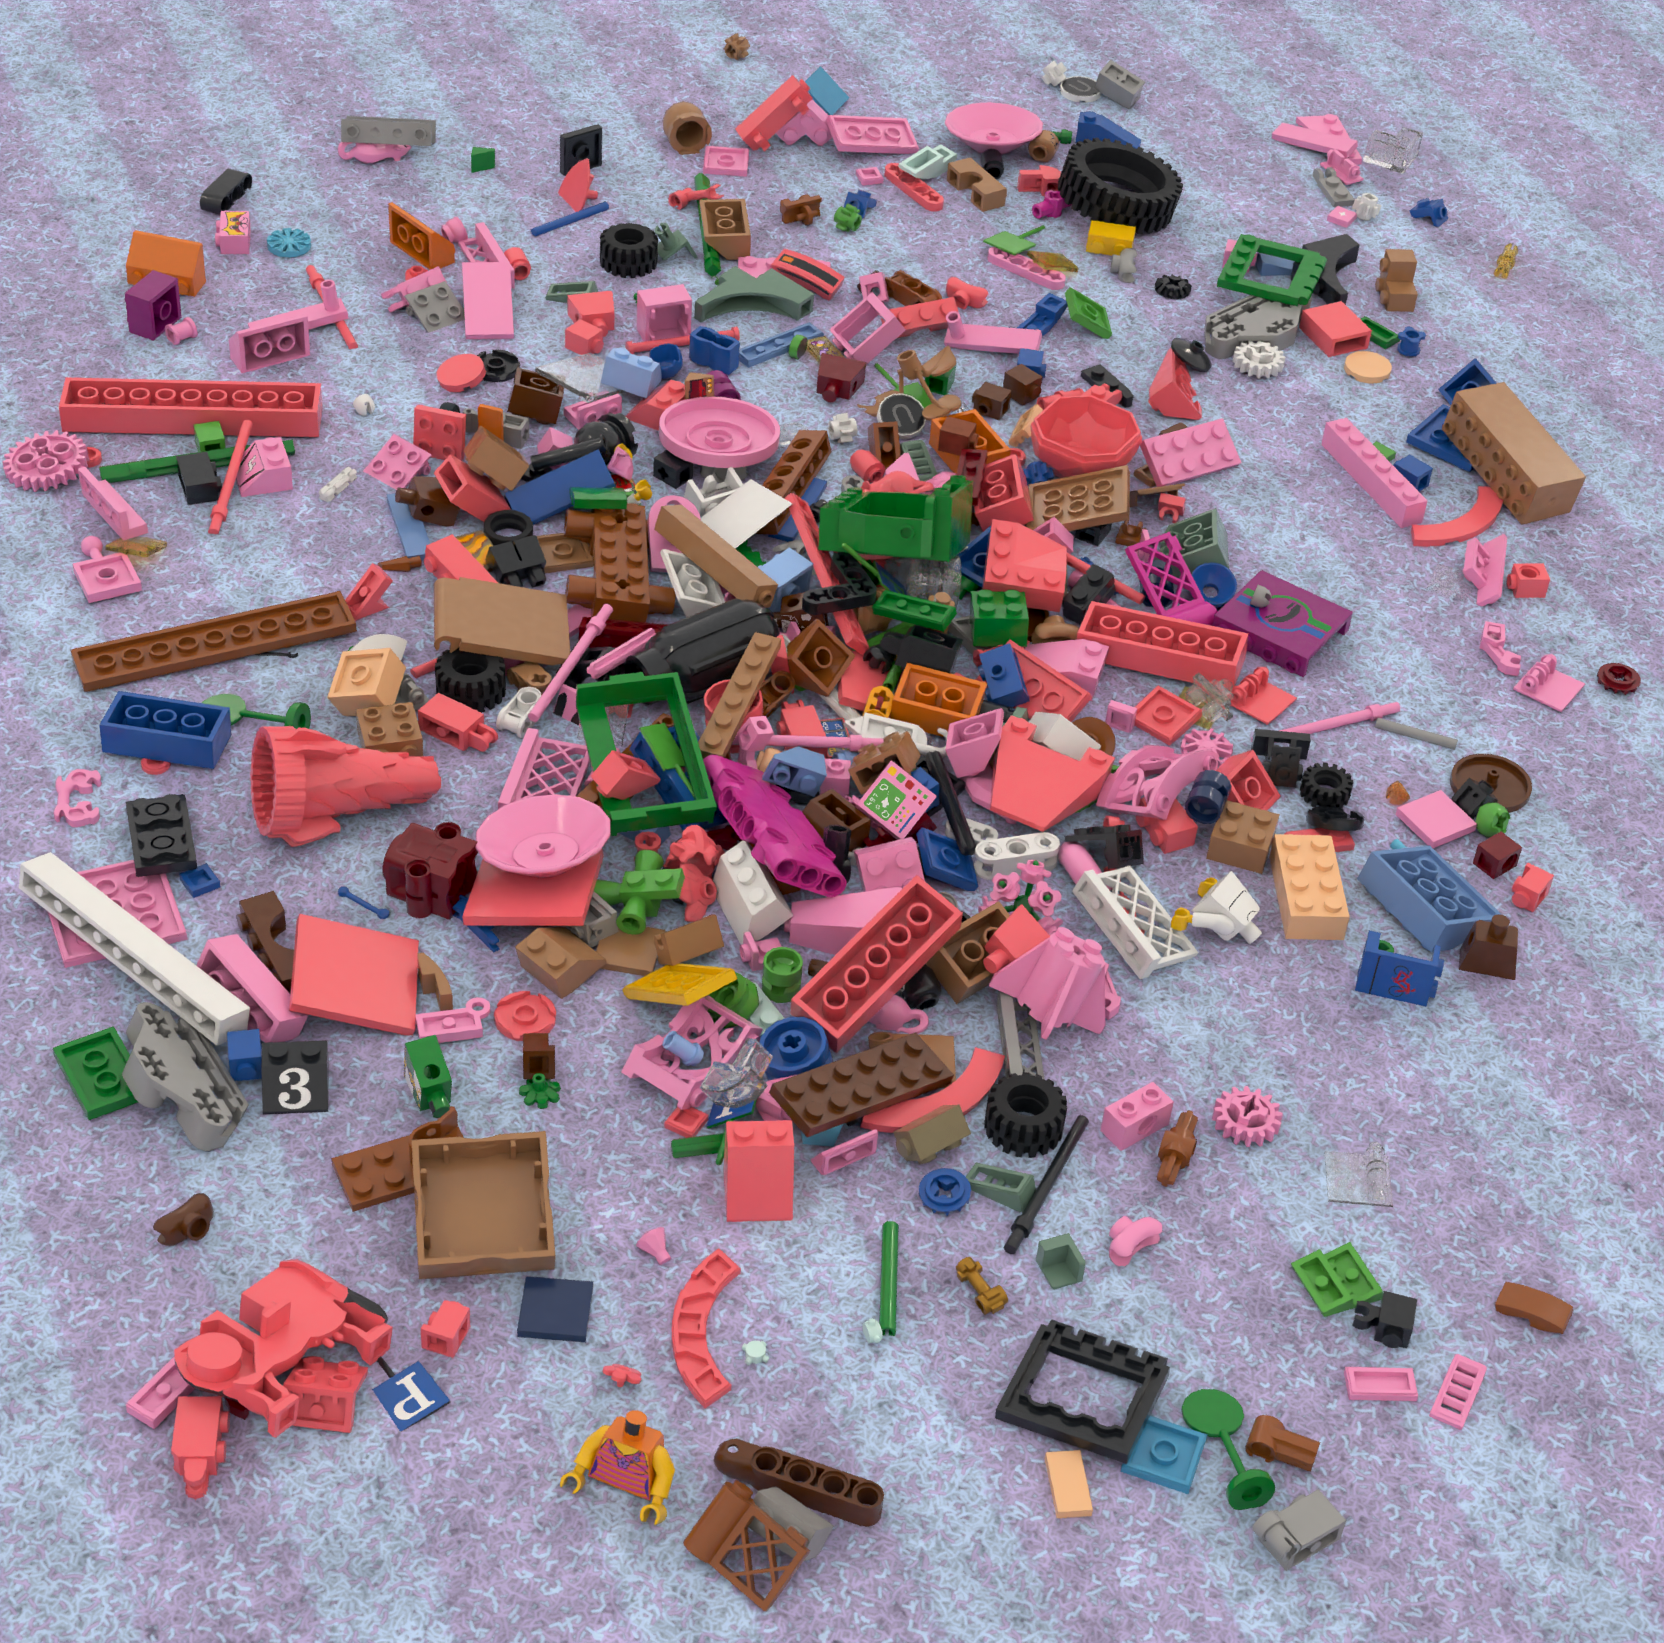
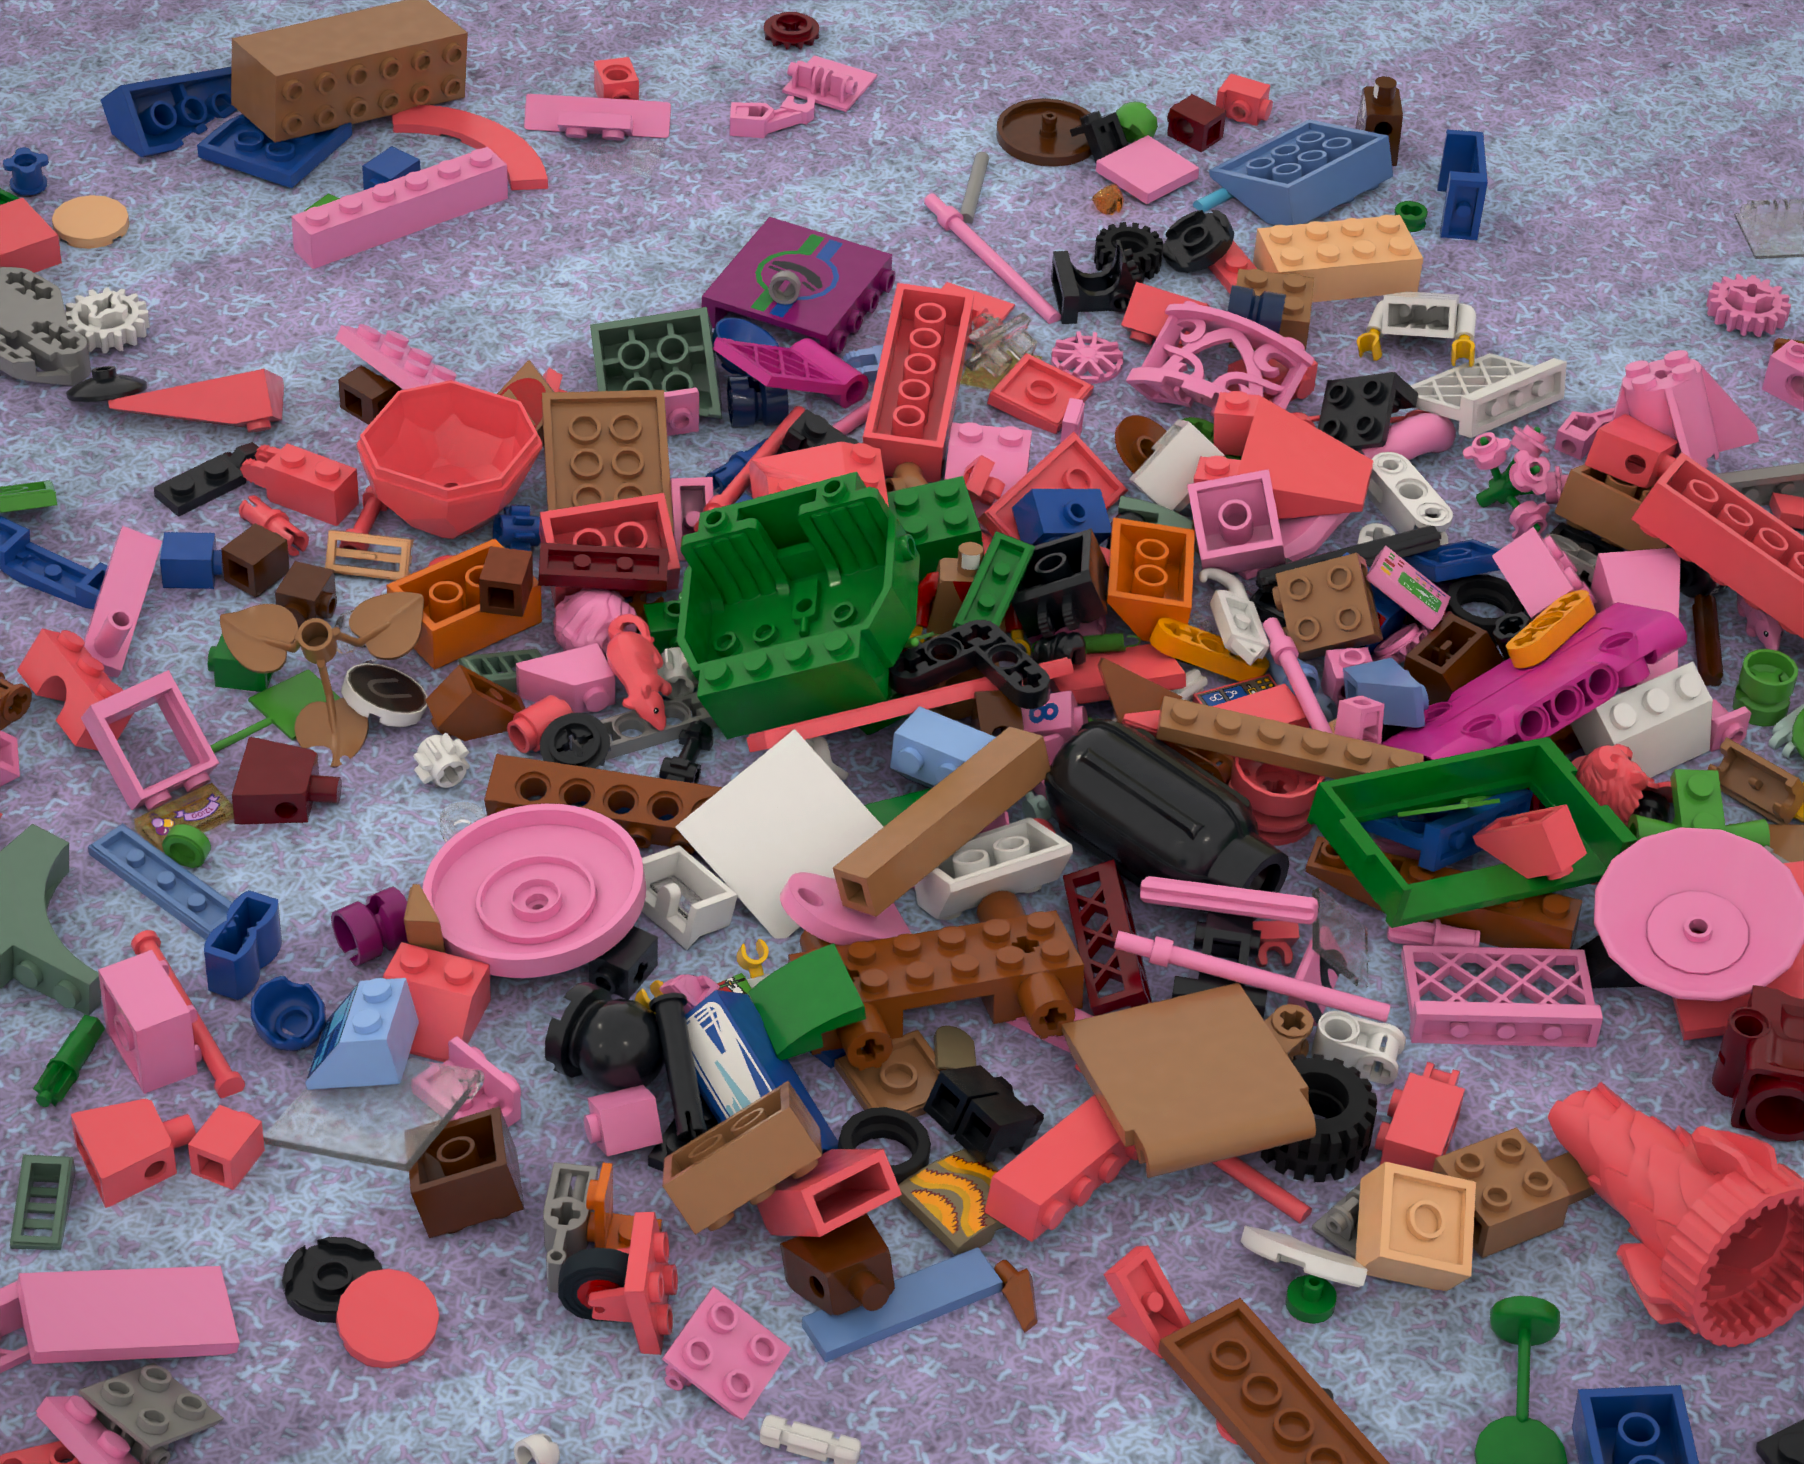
camera: 100 degrees left, 0 degrees up
(569, 567) = (953, 1048): none -> dark tan piece
(822, 838) = (1550, 629): none -> light orange beam
(840, 470) = (584, 729): none -> black gear
(1041, 643) = (980, 484): none -> coral tile

